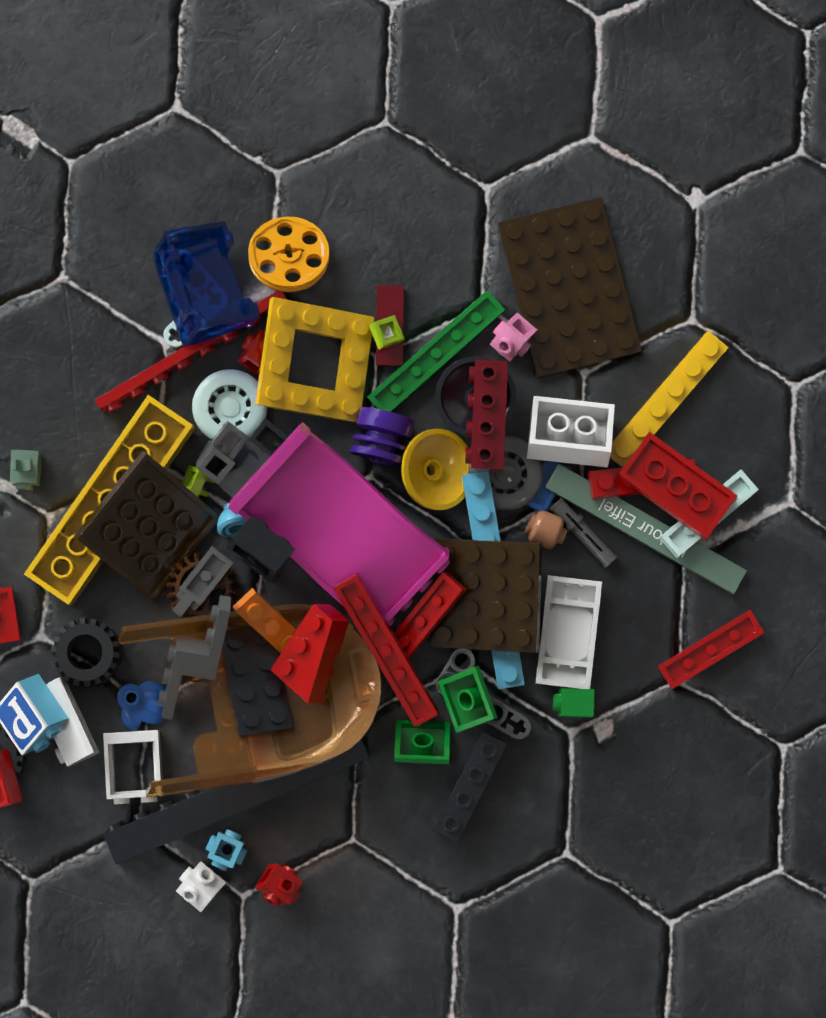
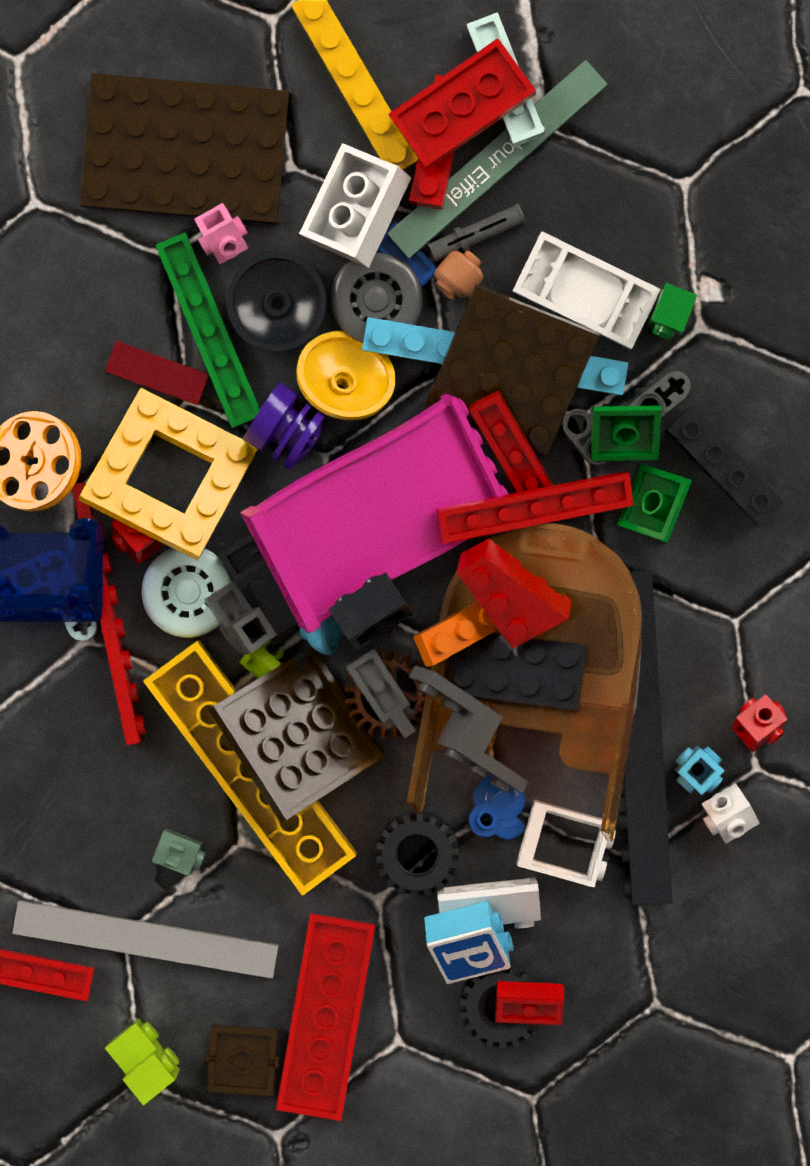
camera: 70 degrees left, 5 degrees up
(386, 332) = (164, 379): lime tile -> none
(488, 416) = (305, 294): dark red brick -> none
(710, 649) = (662, 133): red plate -> none

